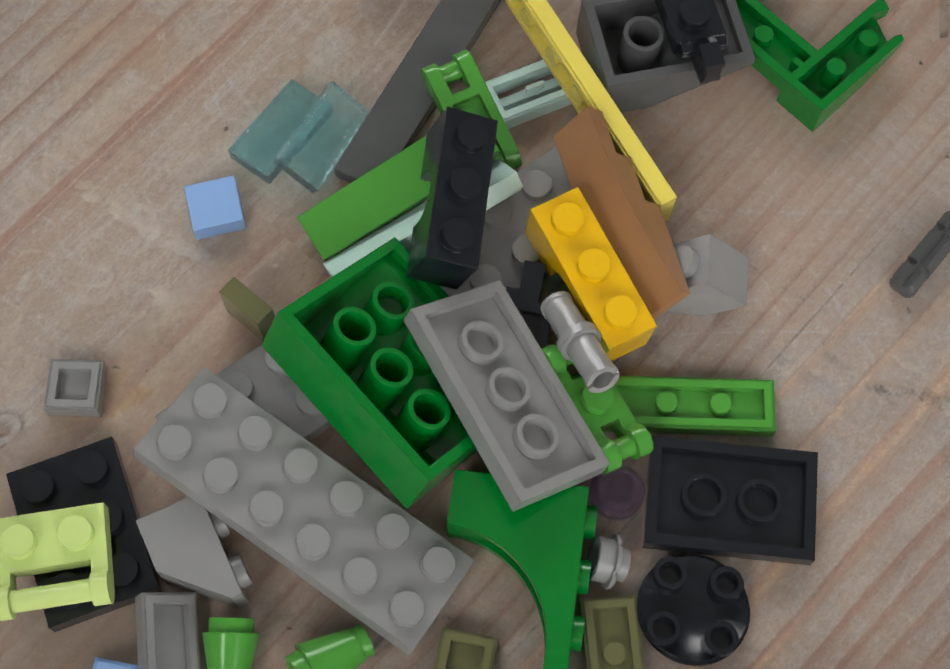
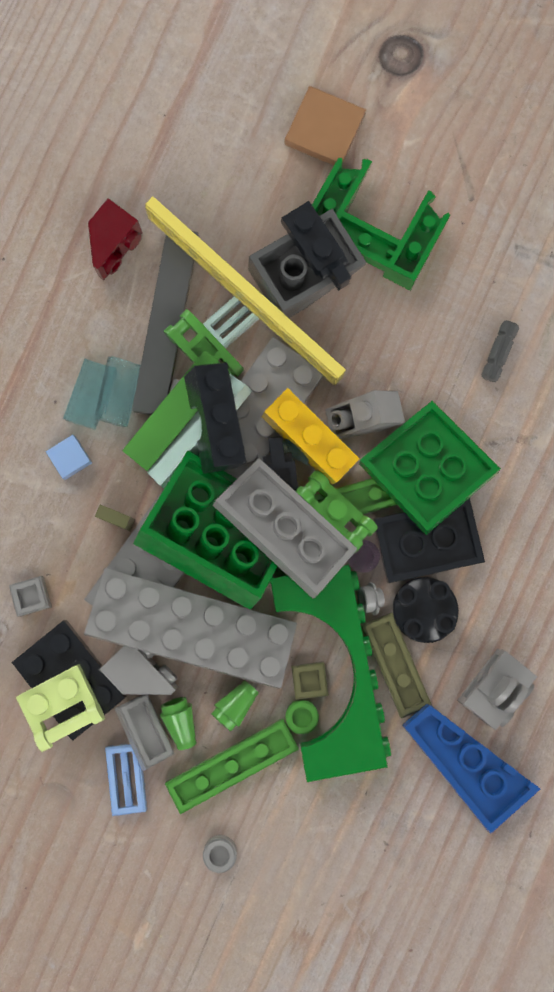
camera: 20 degrees left, 15 degrees up
(579, 342) = (318, 483): light grey pin -> none
(628, 220) = (309, 383): medium nougat slope -> none
(765, 384) = (429, 467): none -> green plate

